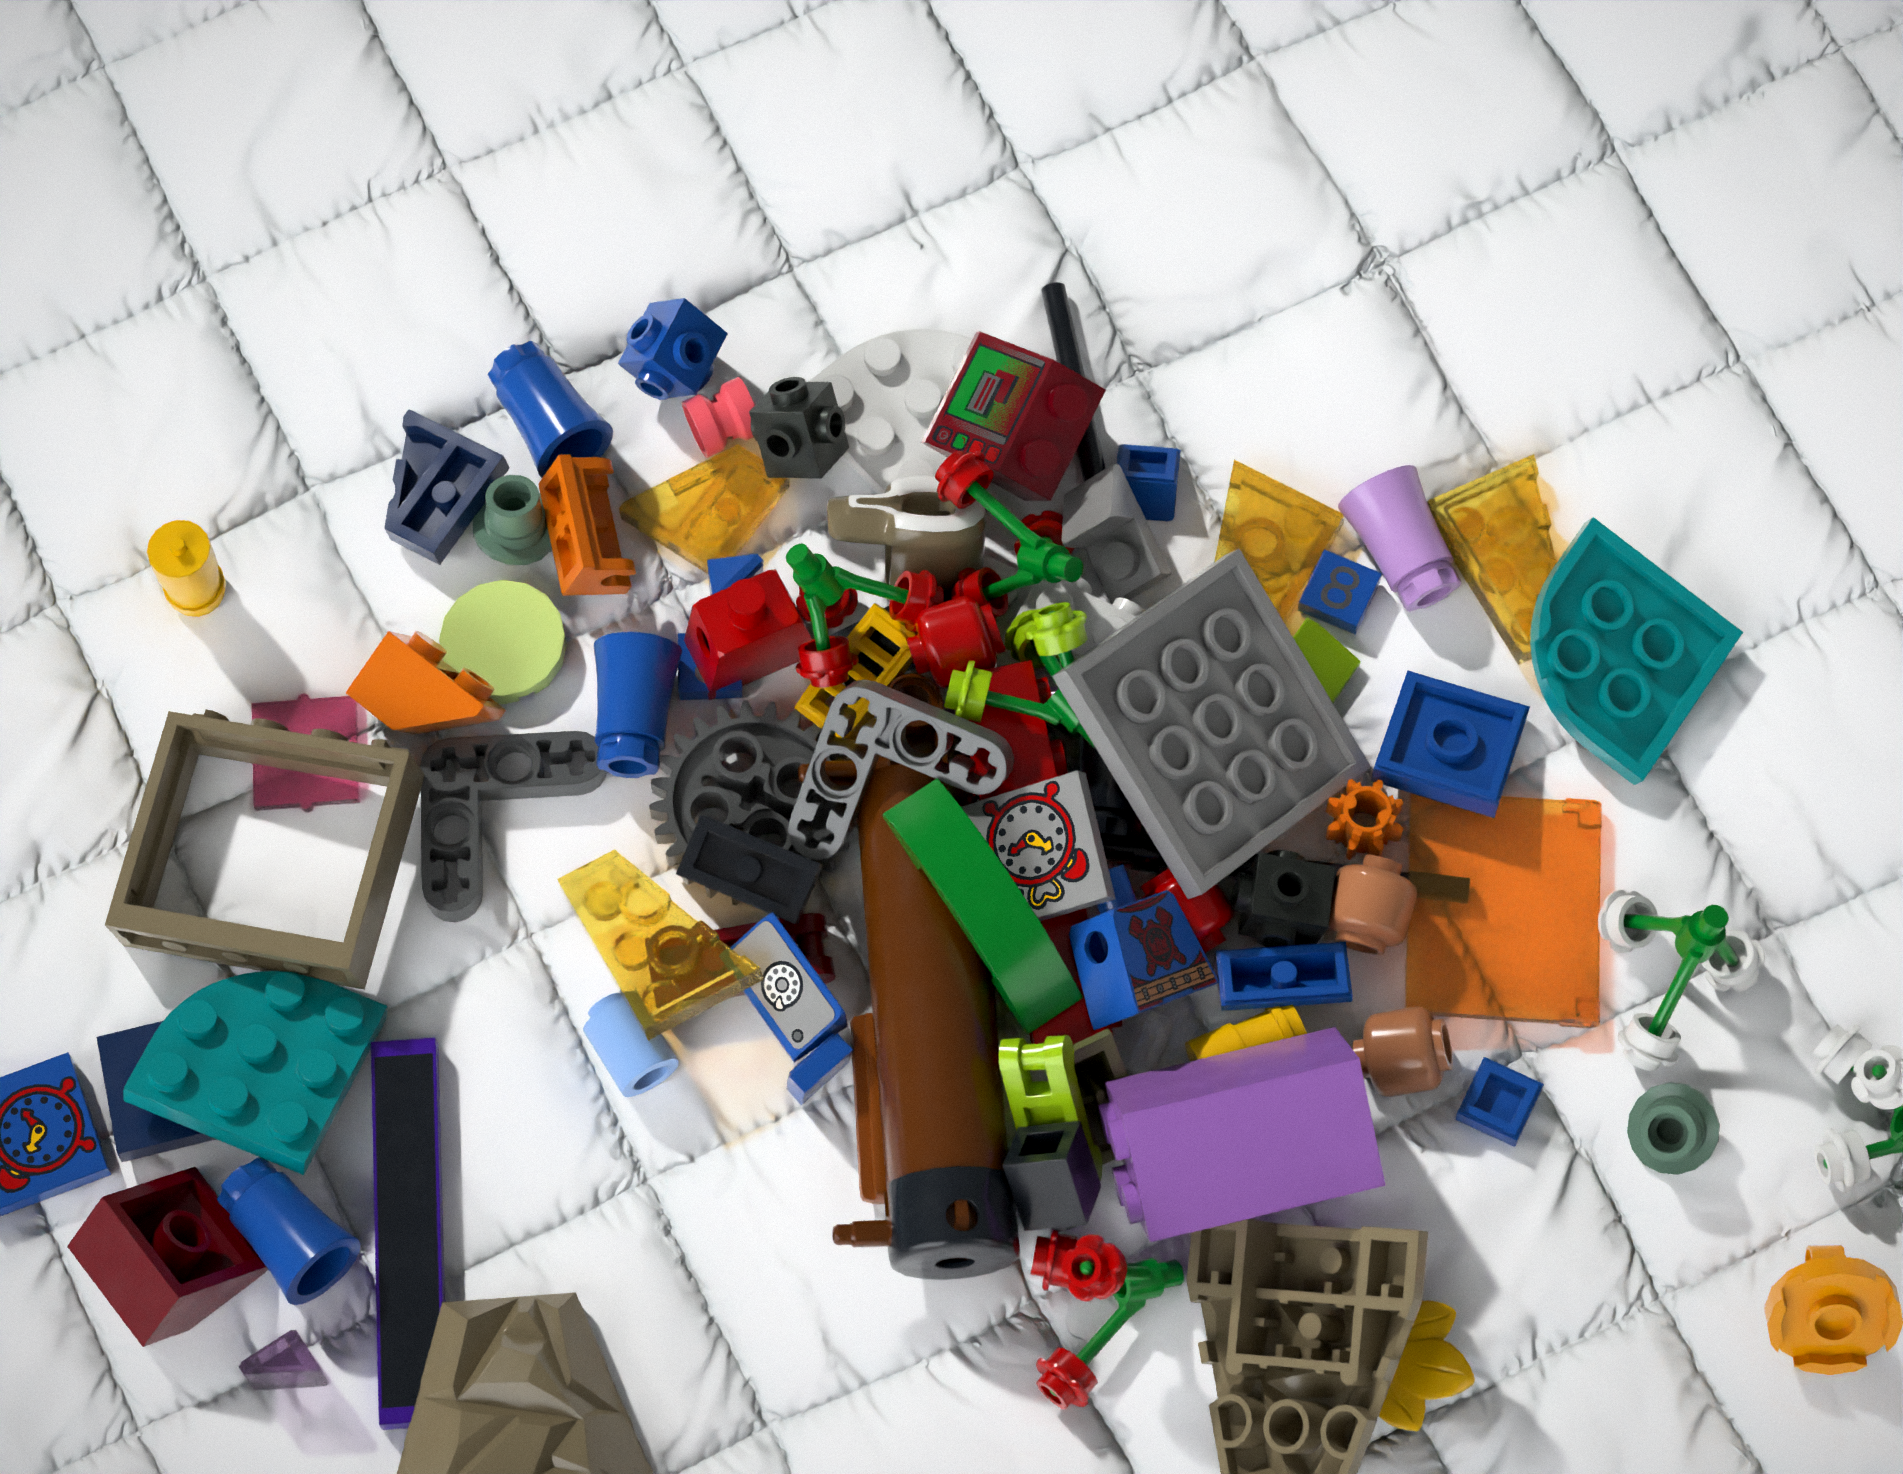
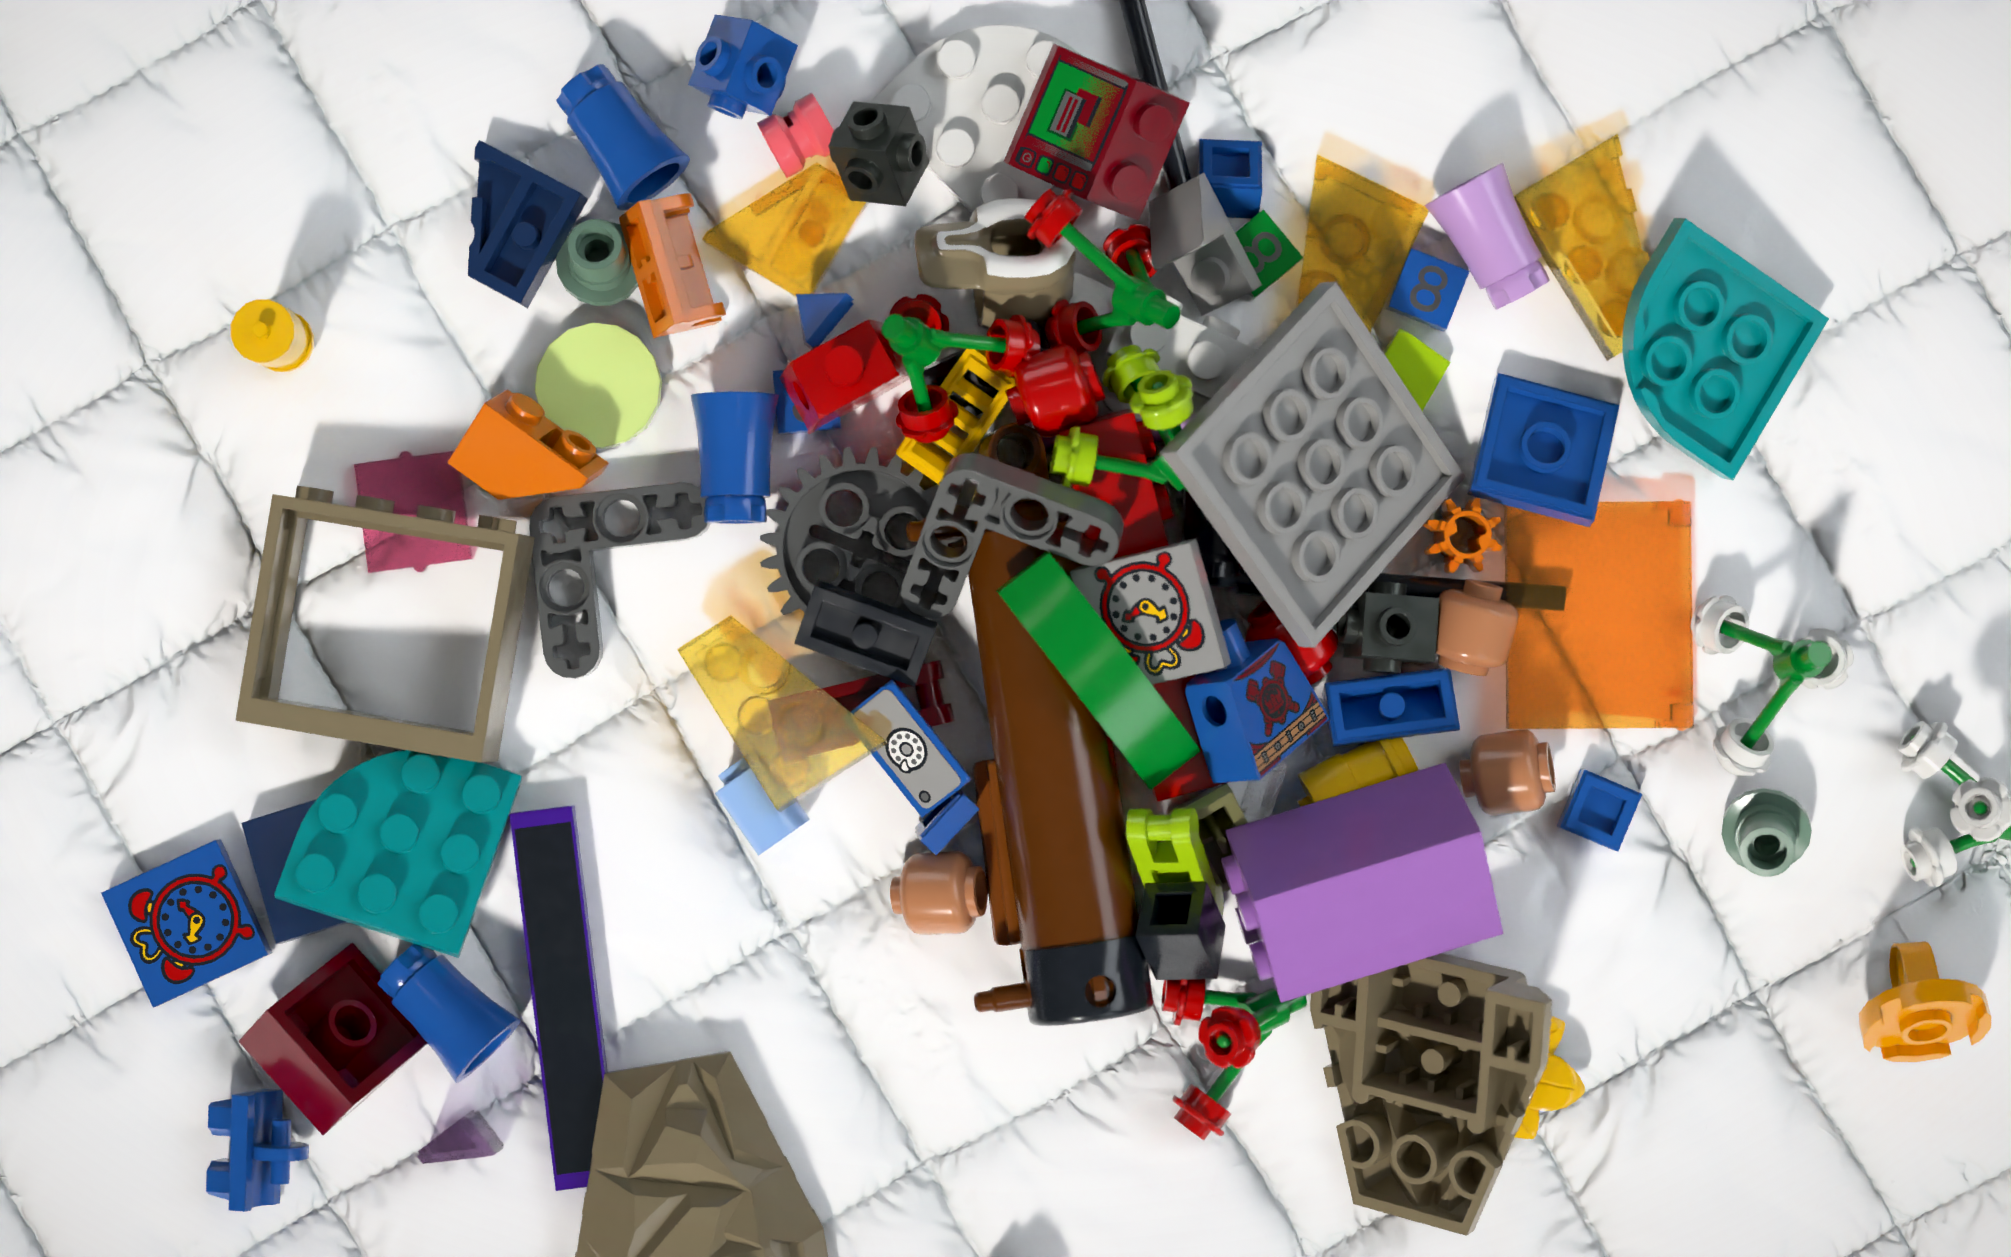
camera: 10 degrees left, 20 degrees up
(73, 1362) = (258, 1149): none -> blue hips
(806, 1140) = (939, 893): none -> nougat head
(1182, 548) = (1267, 250): none -> green tile

